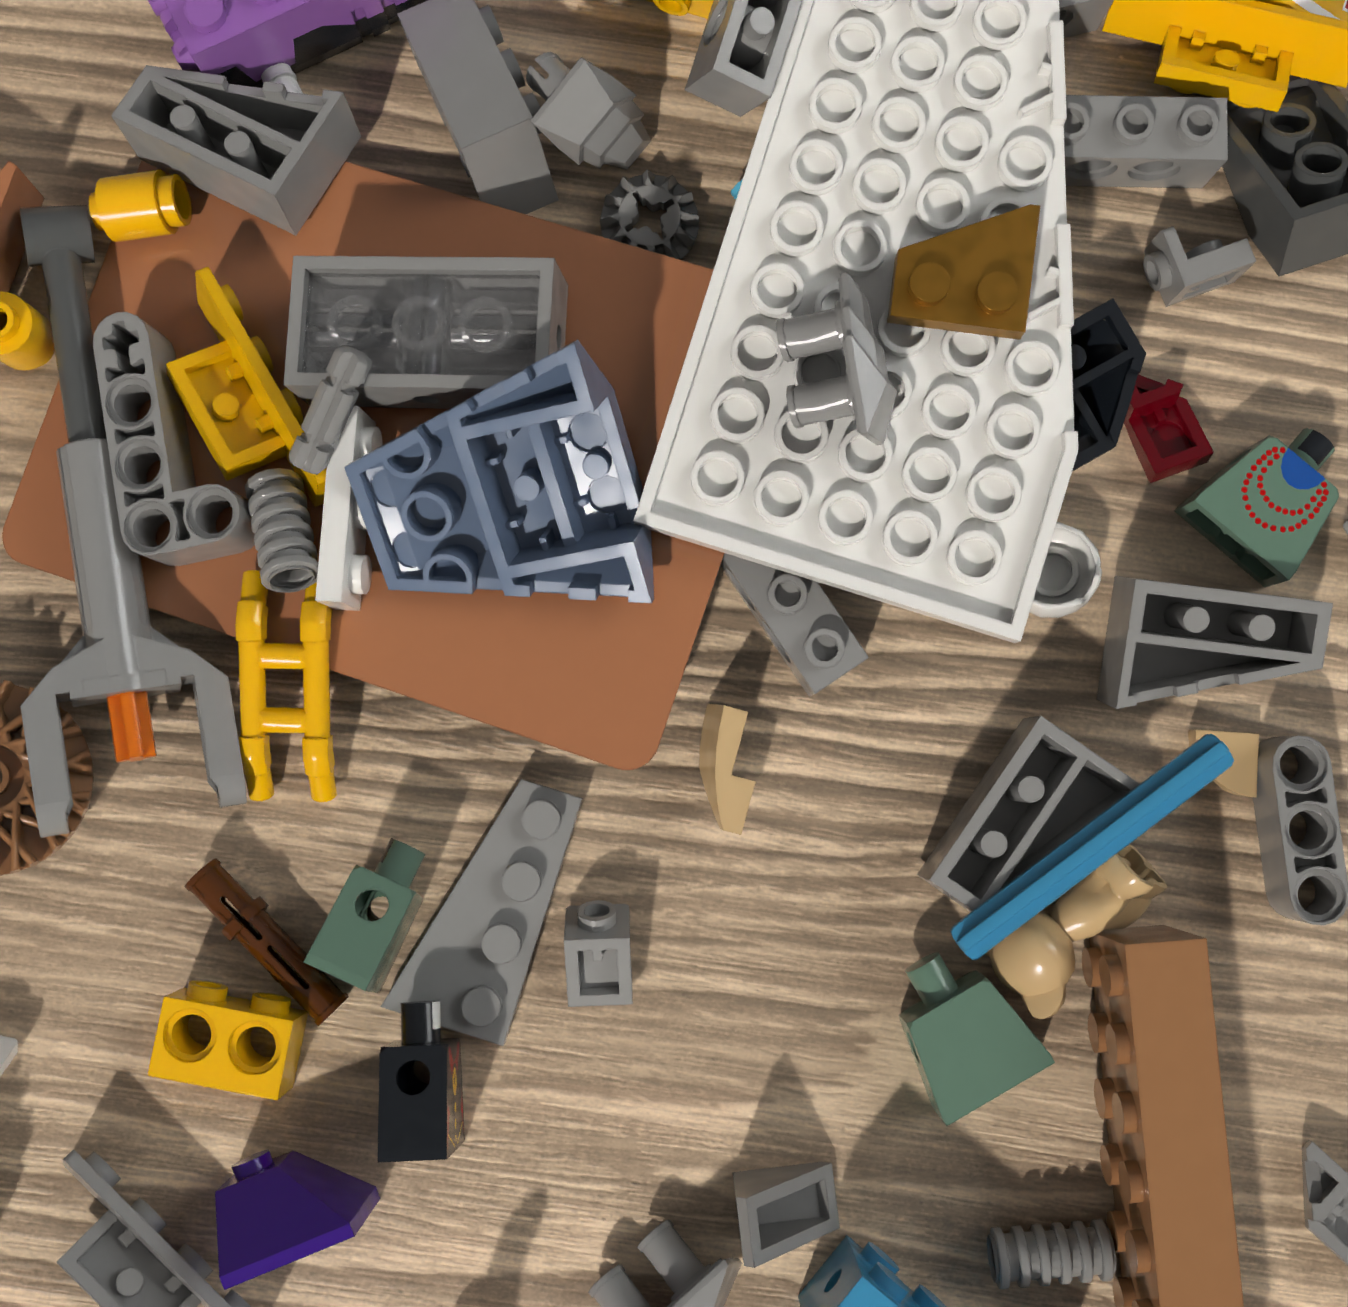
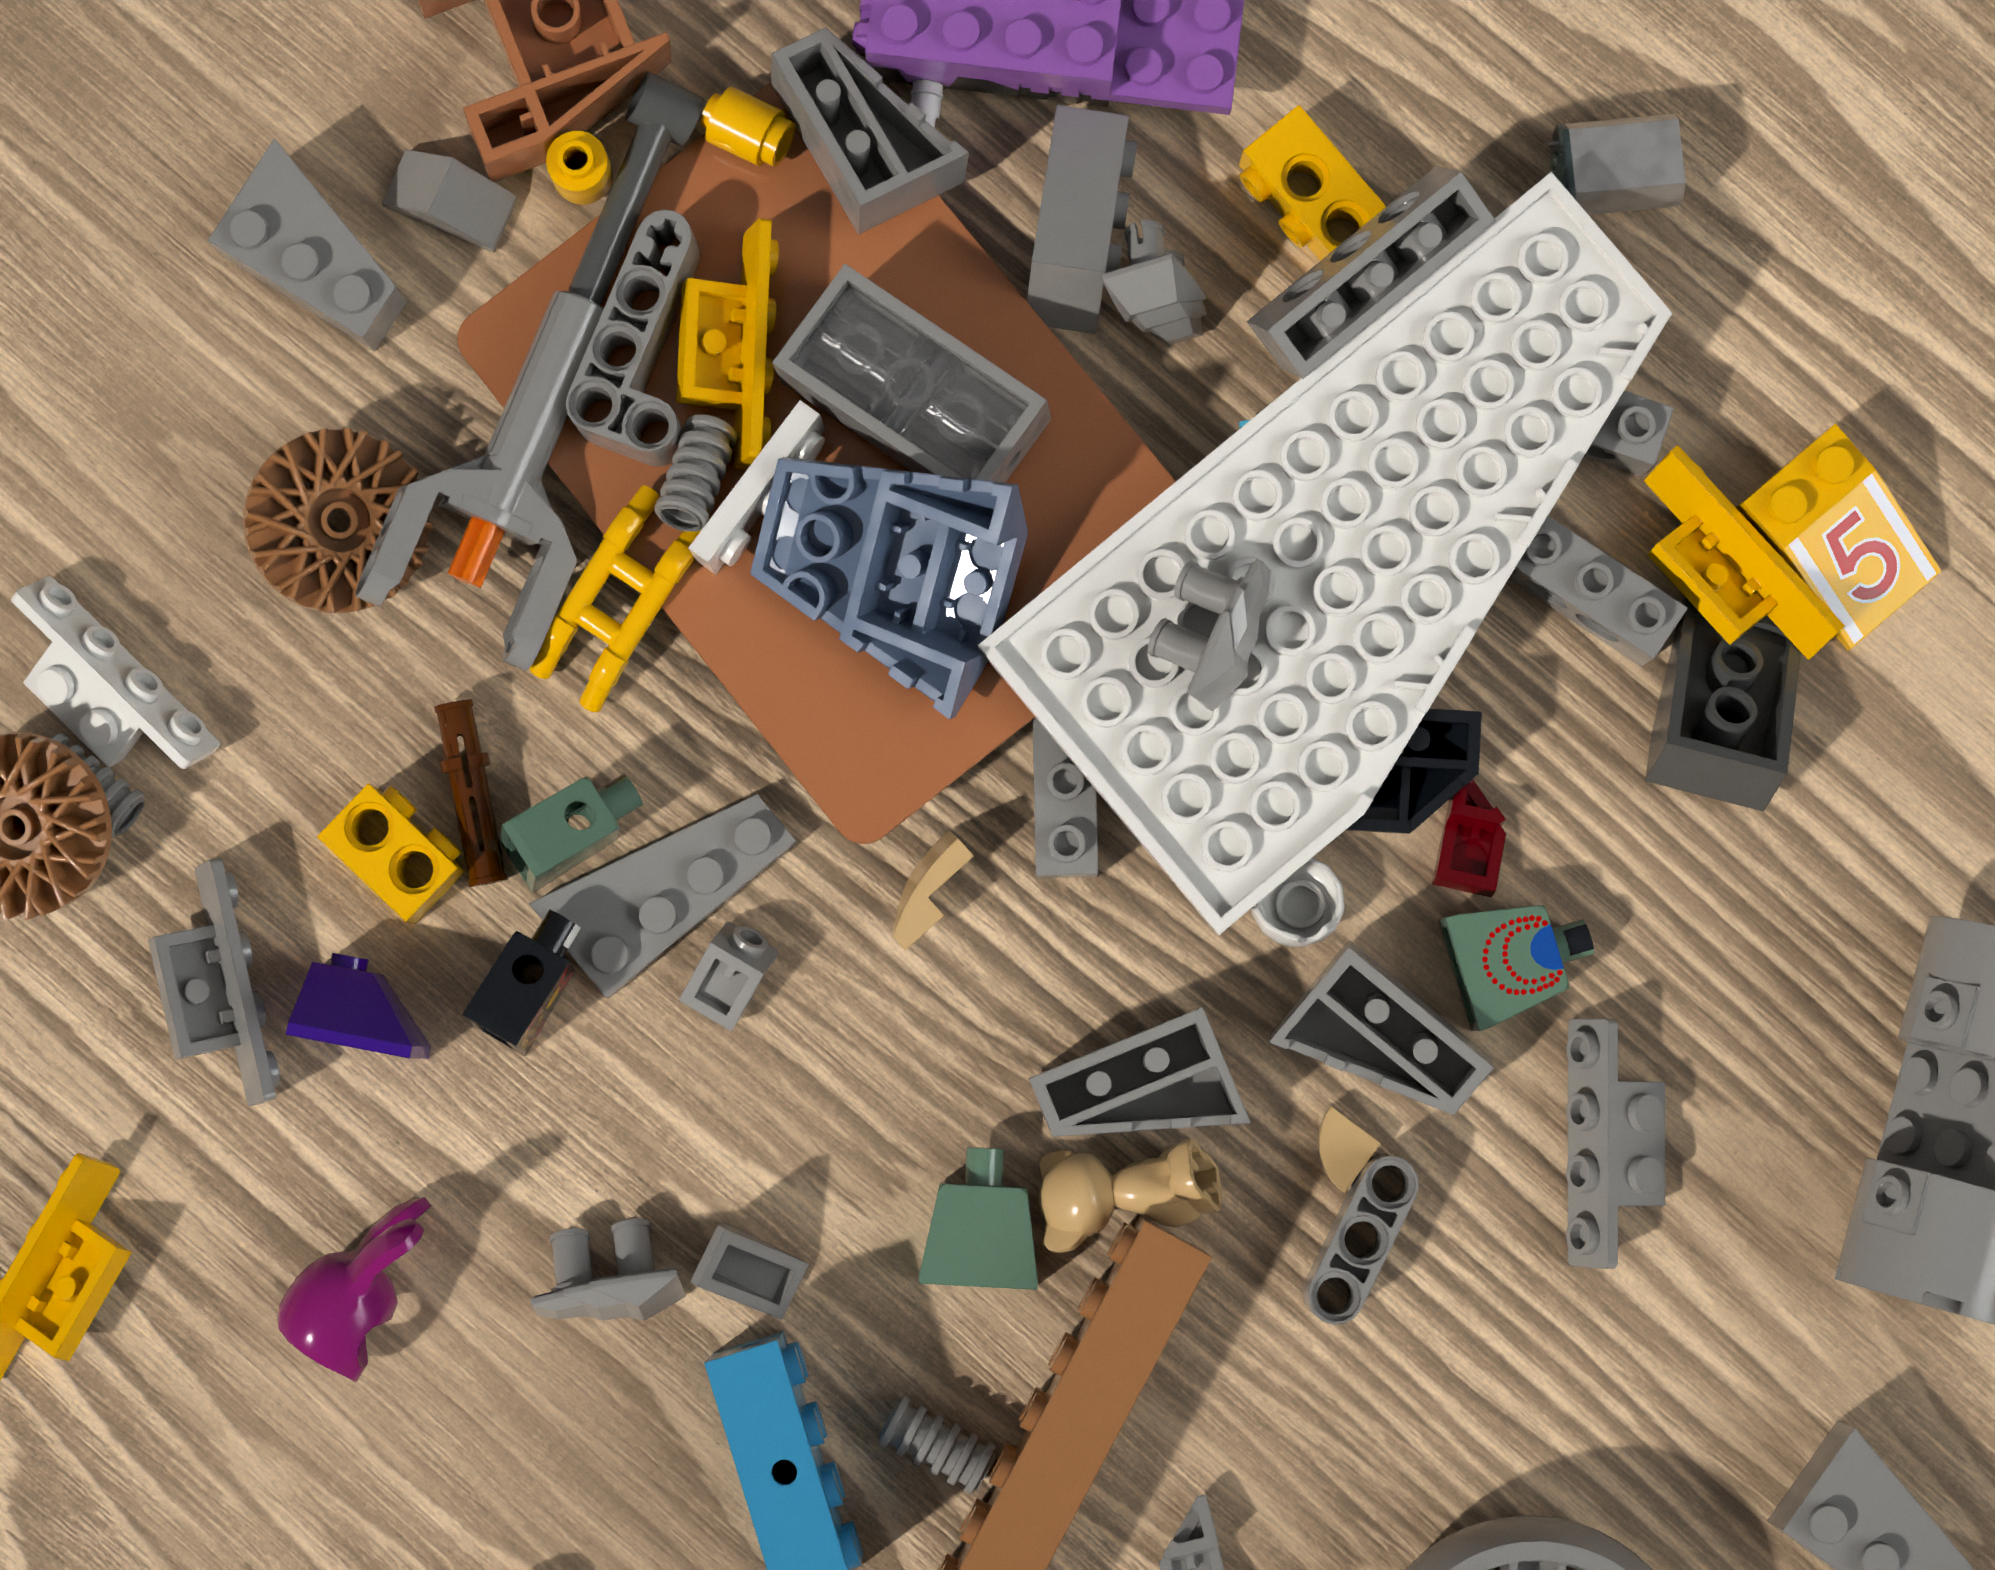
camera: 30 degrees right, 0 degrees up
(330, 409) = (796, 407): light grey axle -> none
(657, 192) = (1179, 381): light grey gear -> none
(969, 277) = (1364, 622): pearl gold wing -> none
(1091, 846) = (1174, 1133): dark azure axle -> none
(1196, 272) = (1590, 736): light grey bracket -> none

